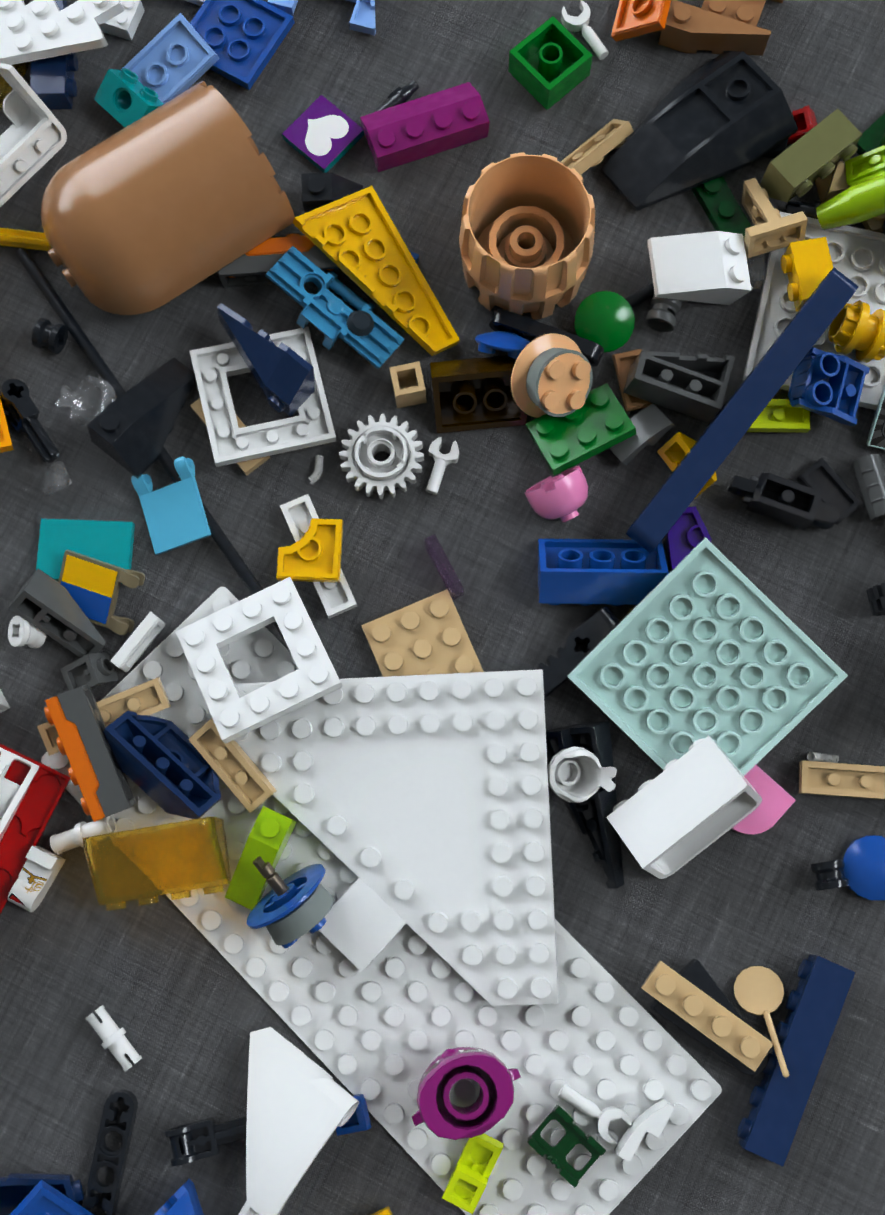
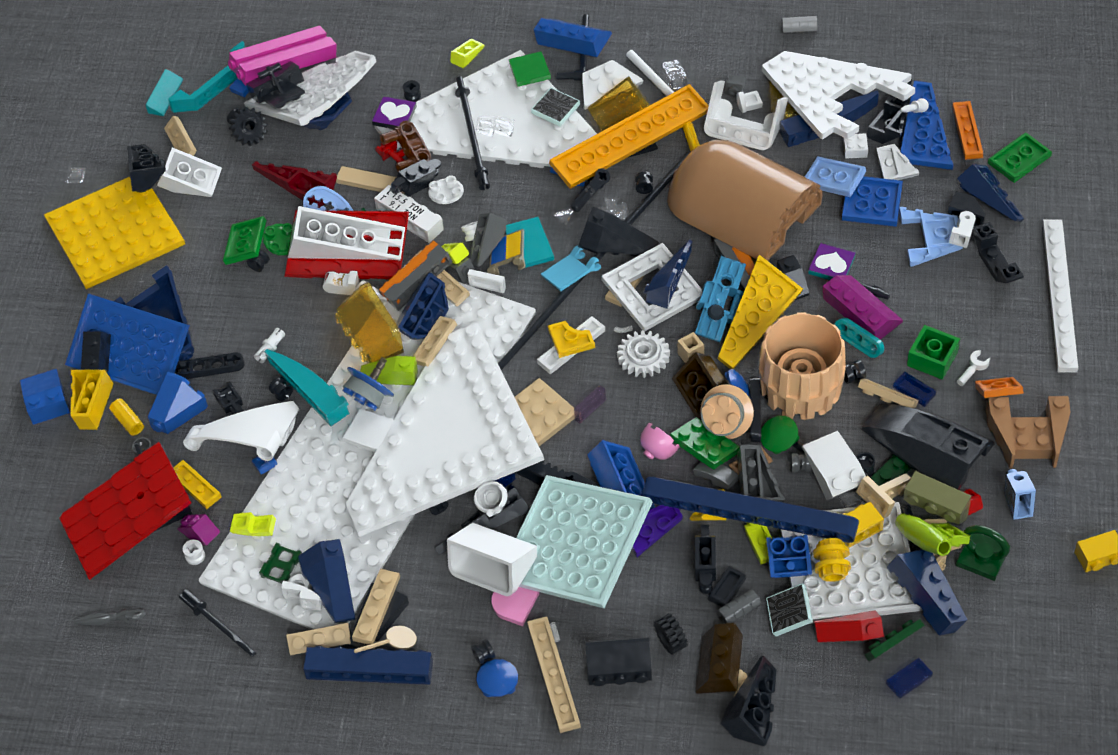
camera: 70 degrees right, 25 degrees down
(56, 677) = (456, 251): none -> neon yellow slope
(125, 96) = (803, 161): teal brick -> none
(214, 1045) = (280, 389): none -> black wheel
(240, 715) = (463, 330): white plate -> none
(243, 994) = (311, 387): none -> teal slope
(441, 461) = (656, 385): white bar -> none
(459, 1122) = (288, 485): magenta piece -> none
(489, 148) = (852, 336): none -> teal plate
(589, 116) = (914, 388): none -> clear blue tile
(627, 1076) = (327, 573): none -> dark blue wedge
(701, 222) = (867, 463): none -> black wheel
(720, 1122) = (324, 637): none -> tan plate
(824, 54) = (1020, 485): none -> light blue torso

